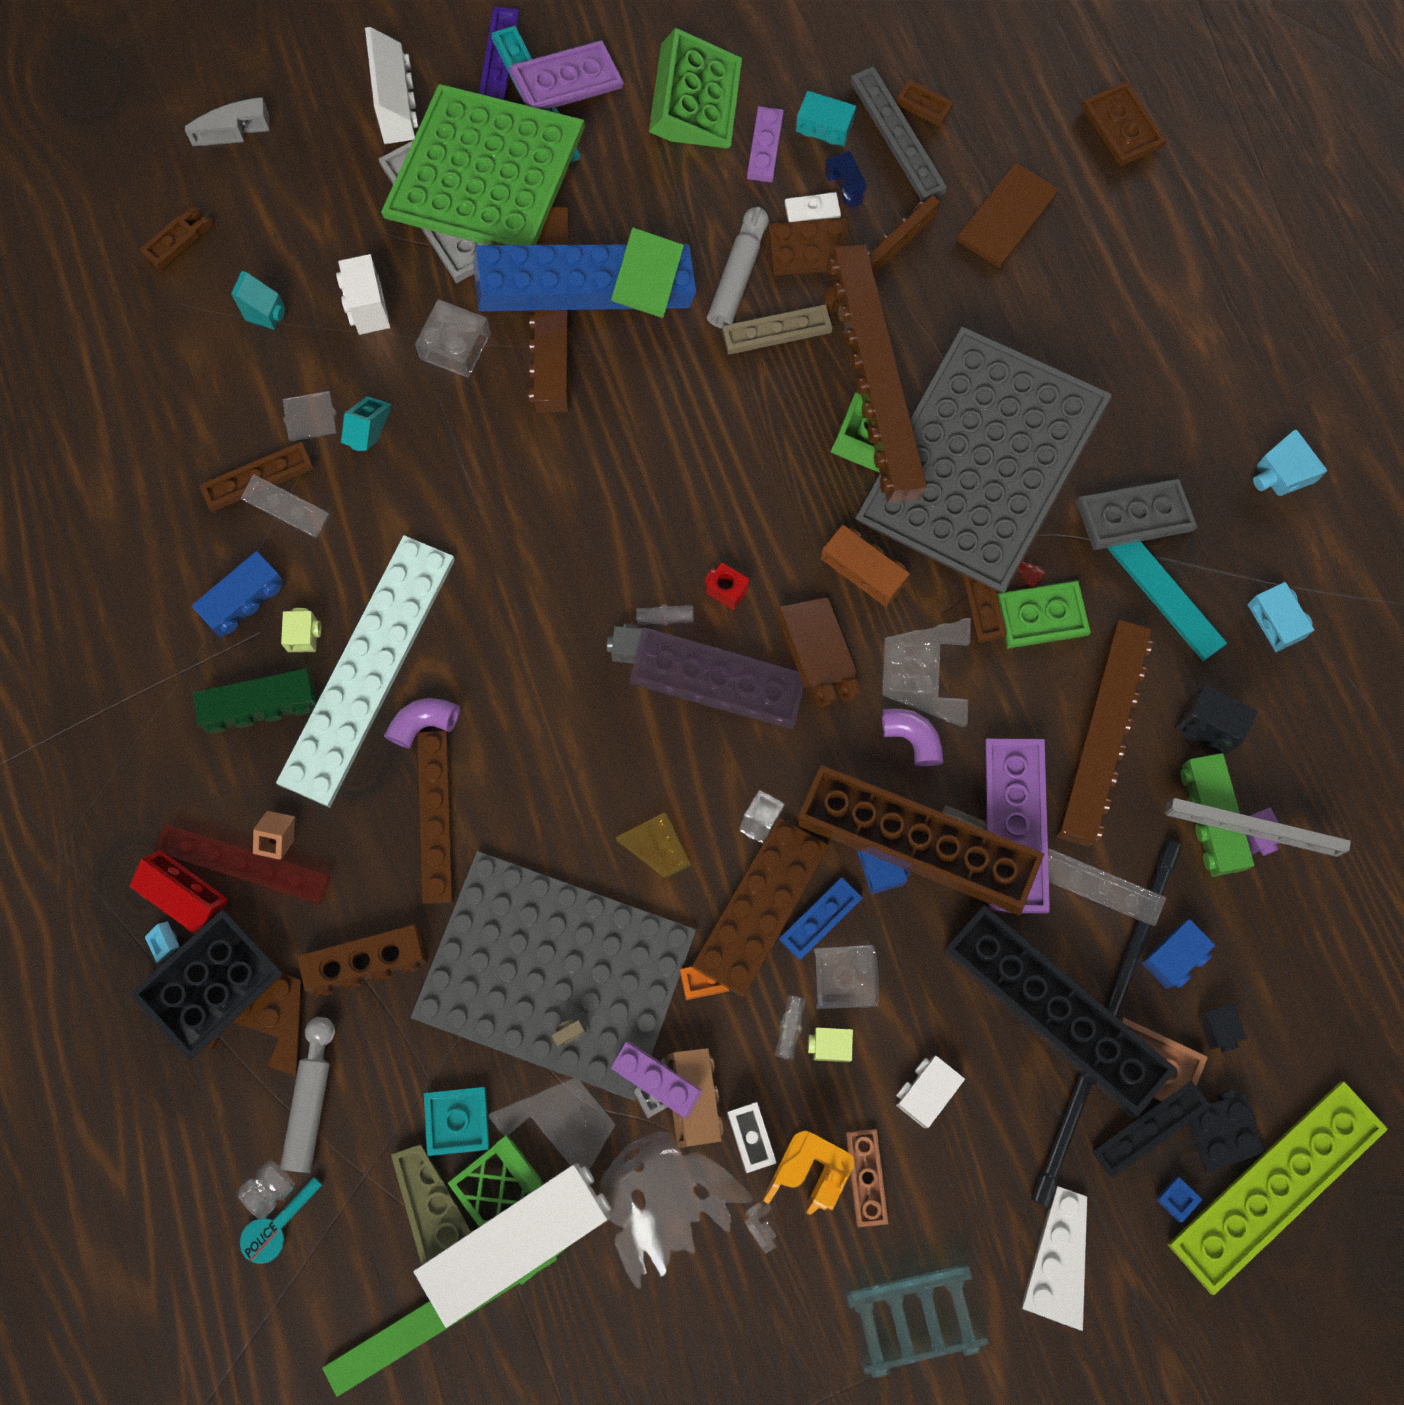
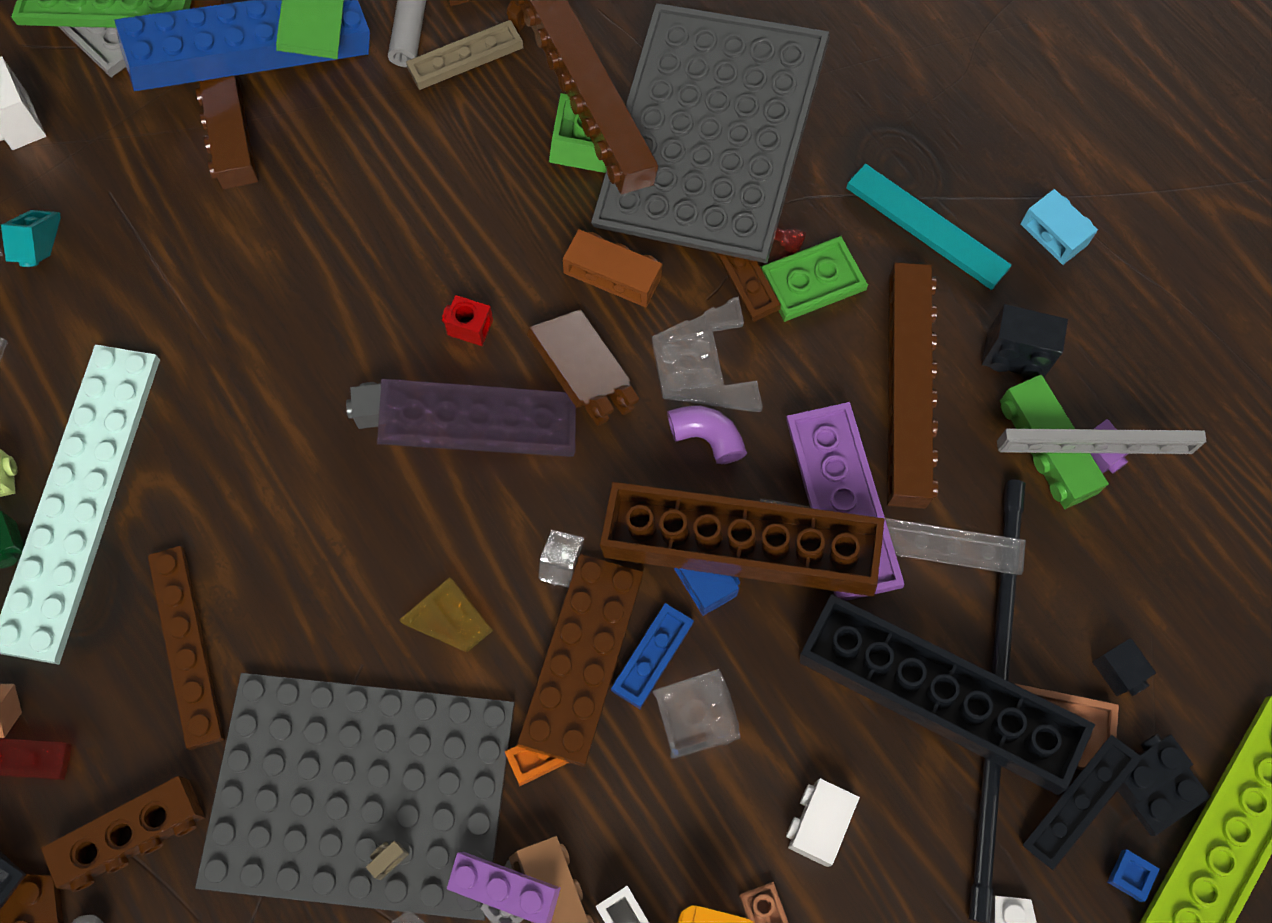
camera: 15 degrees left, 5 degrees down
(420, 715) = (146, 534): medium lavender cylinder -> none
(453, 338) = (115, 130): clear brick -> none
(664, 615) = (406, 366): clear pin -> none
(790, 1027) = (646, 788): clear pin -> none
(831, 1044) = (698, 796): yellowish green brick -> none
(1136, 514) = (882, 157): dark grey tile -> none
(1178, 955) = (1055, 600): blue brick -> none
(1289, 466) = (1024, 80): medium azure torso -> none

